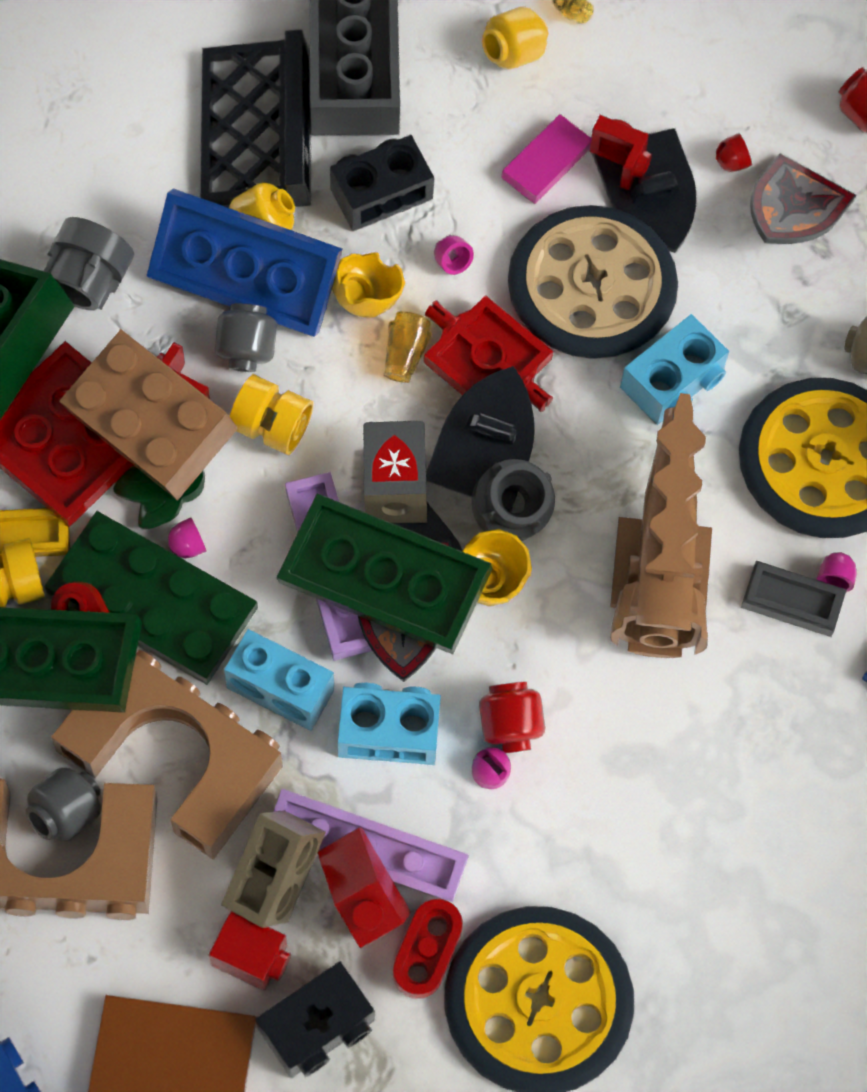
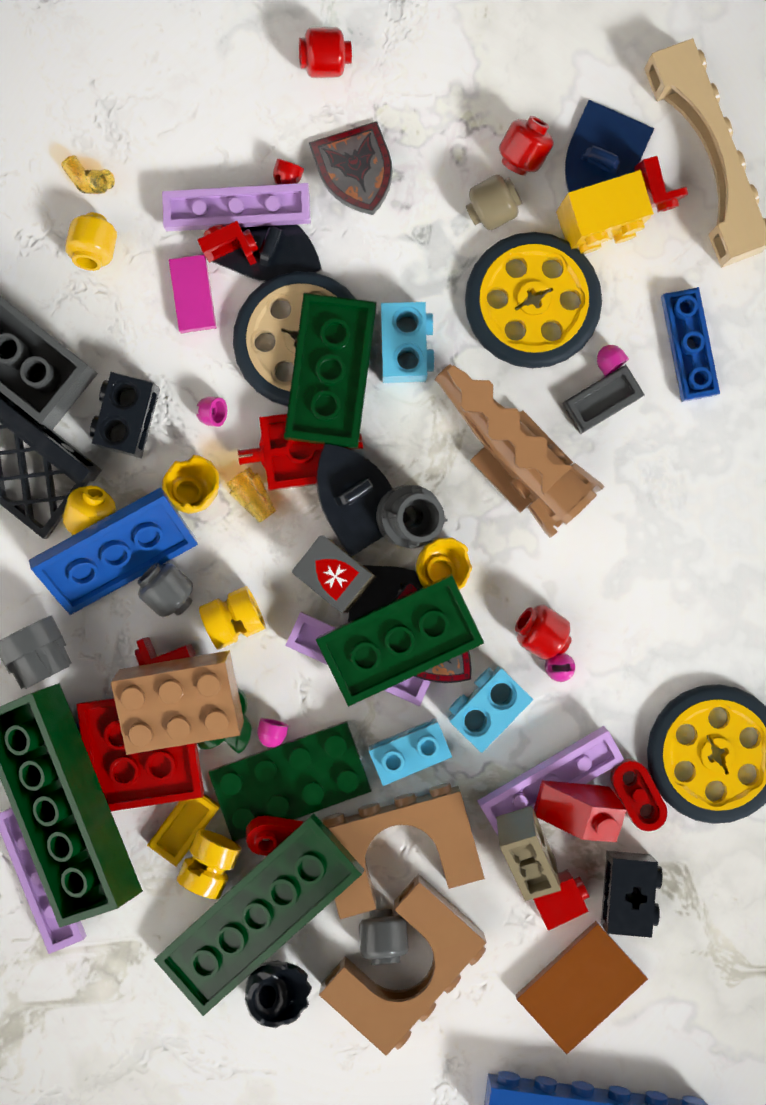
camera: 45 degrees left, 20 degrees up
(586, 321) = (330, 370): none -> dark green tile
(670, 138) = (248, 205): none -> lavender plate

